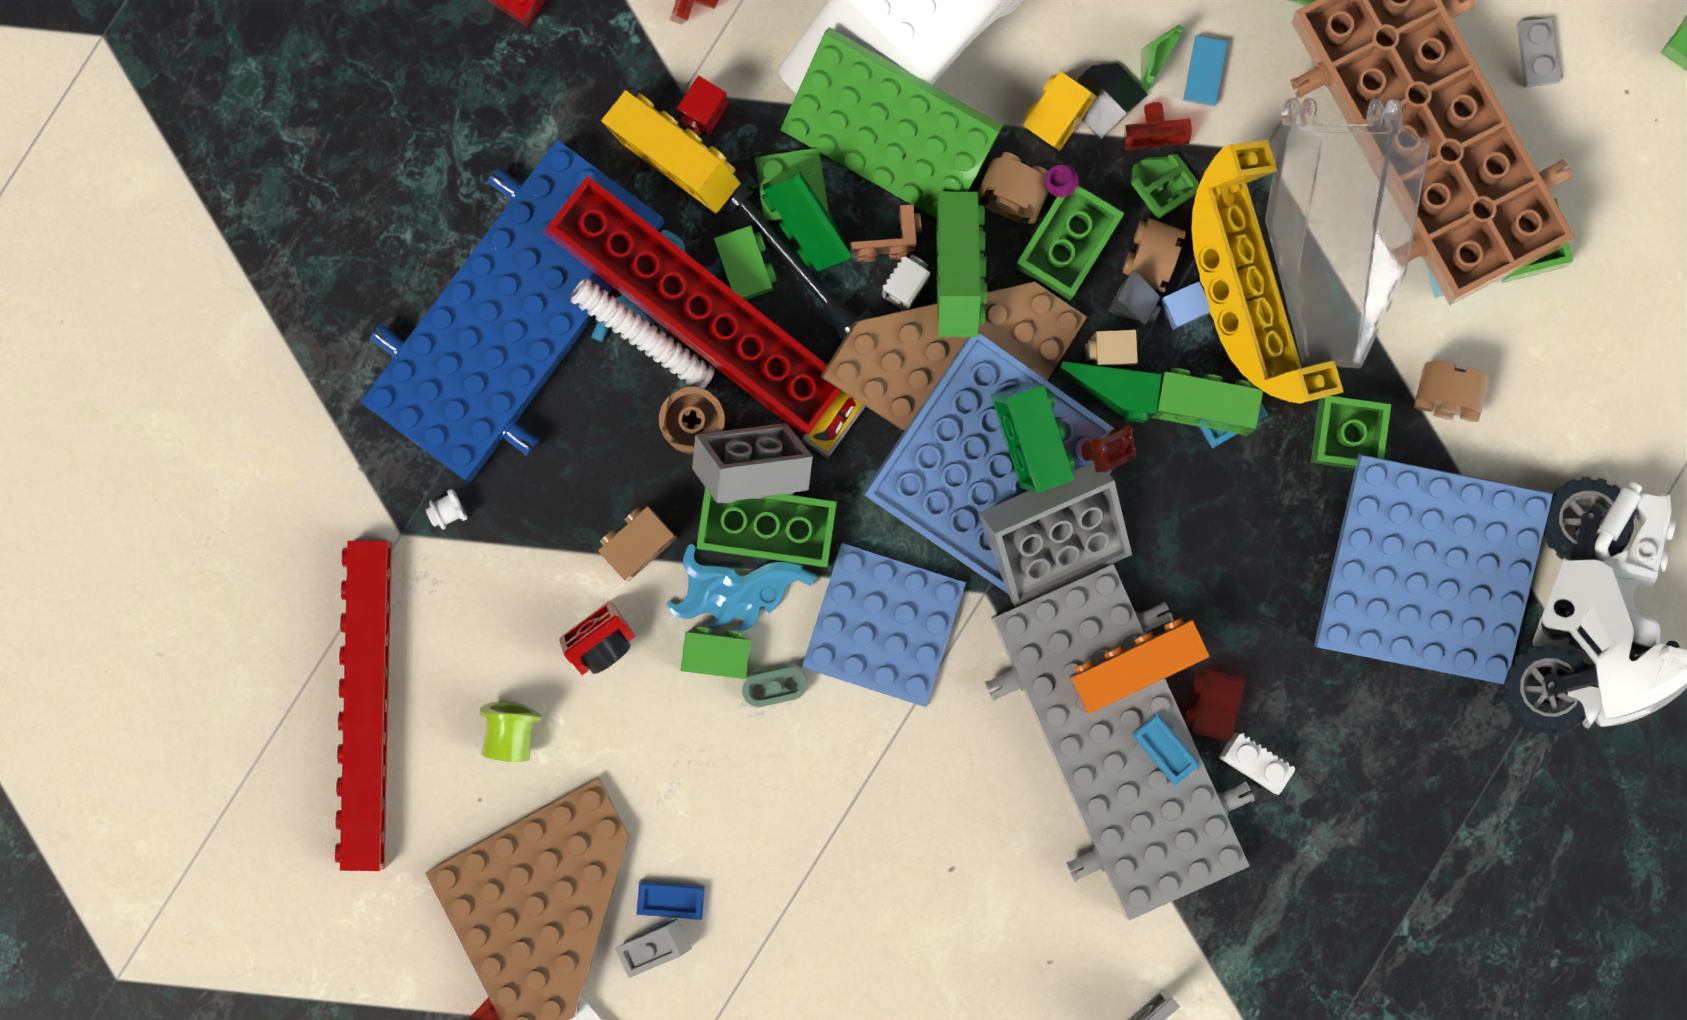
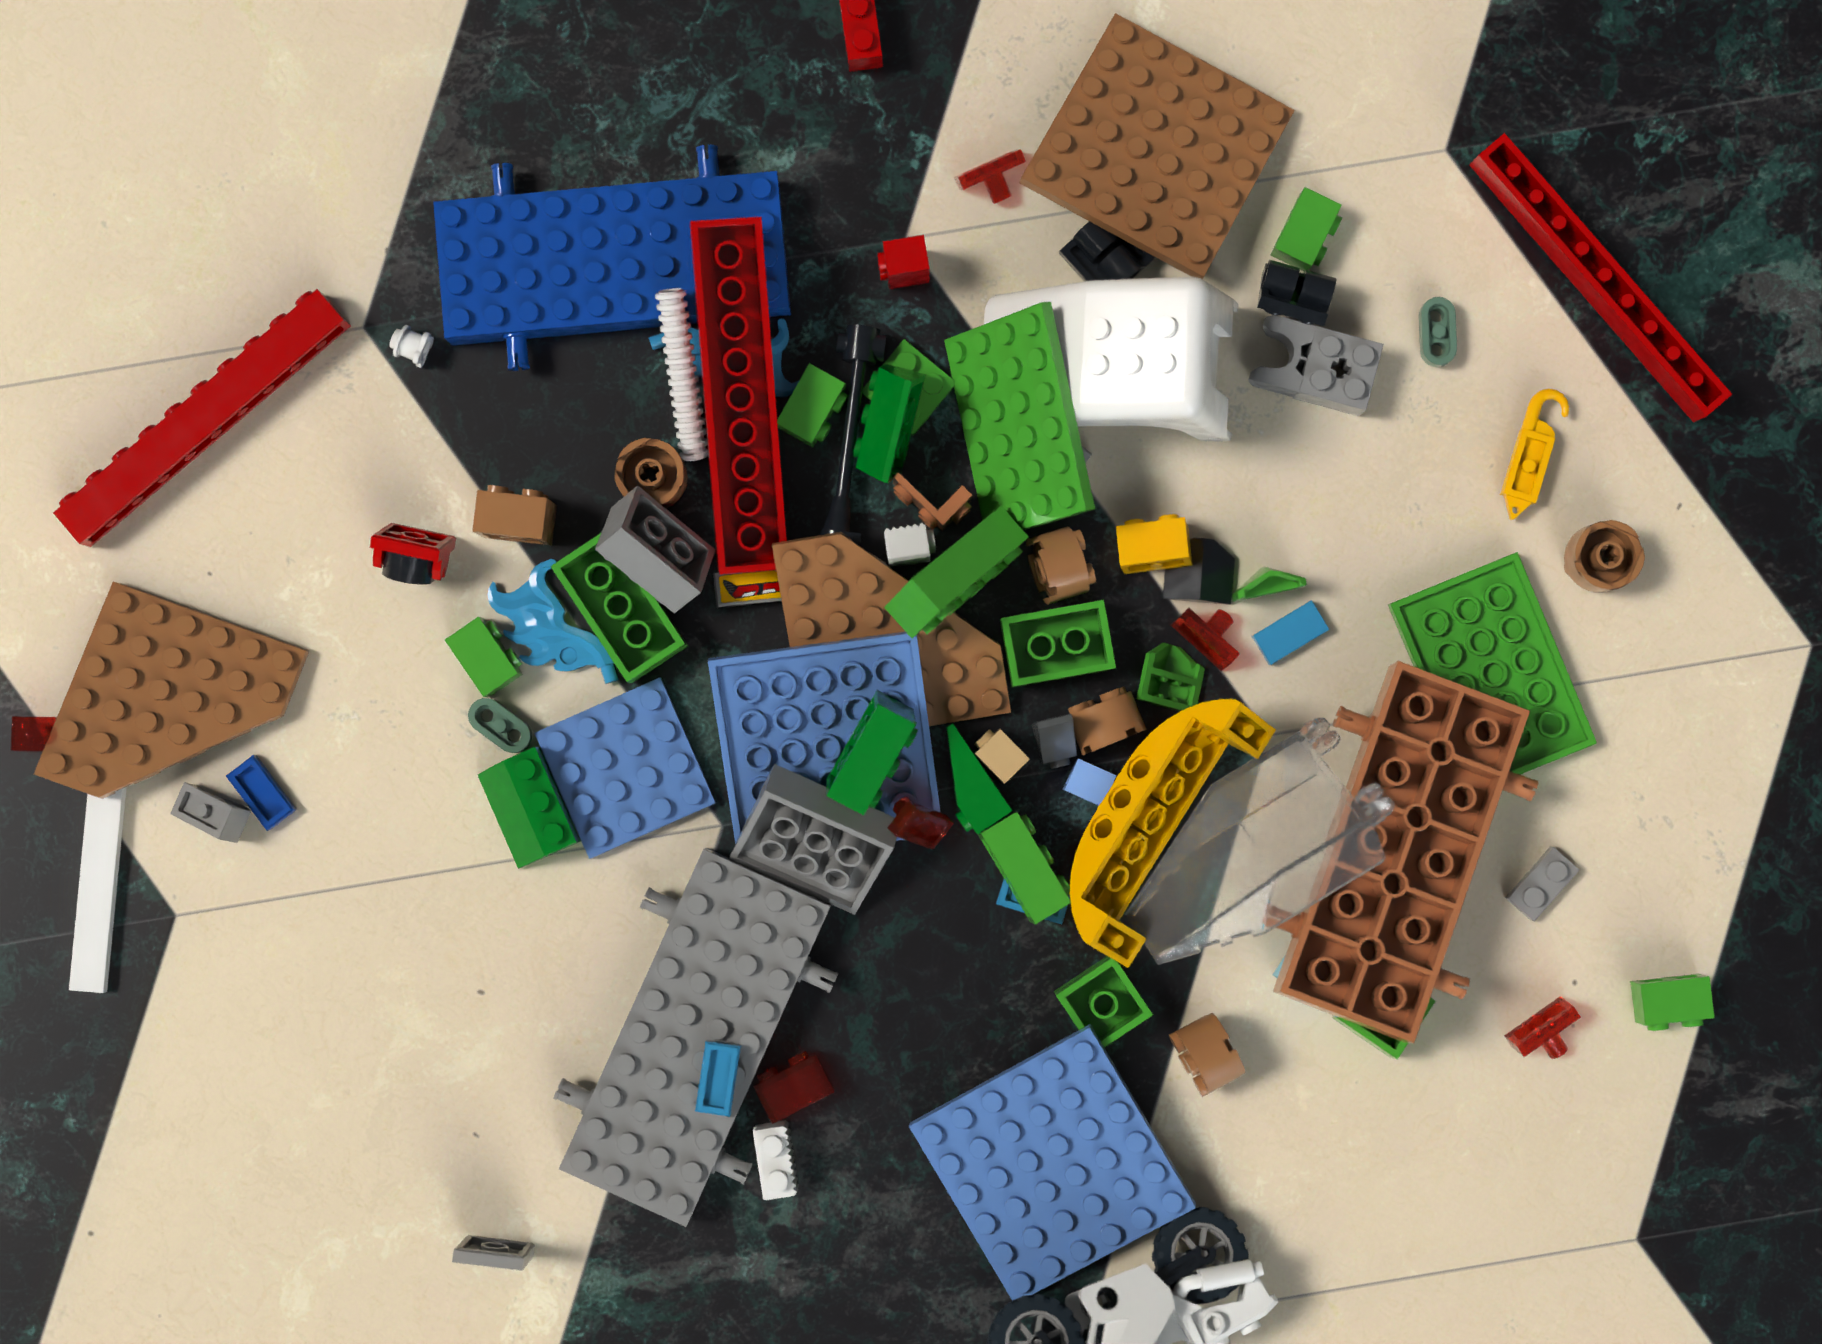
camera: 50 degrees right, 0 degrees up
(508, 731) = (279, 546): lime piece -> none
(672, 150) = (847, 268): yellow brick -> none
(851, 718) = (529, 807): none -> green slope
(1062, 181) = (1097, 595): magenta plate -> none
(1138, 666) = (764, 998): orange brick -> none
(1641, 141) = (1544, 1029): none -> clear red tile

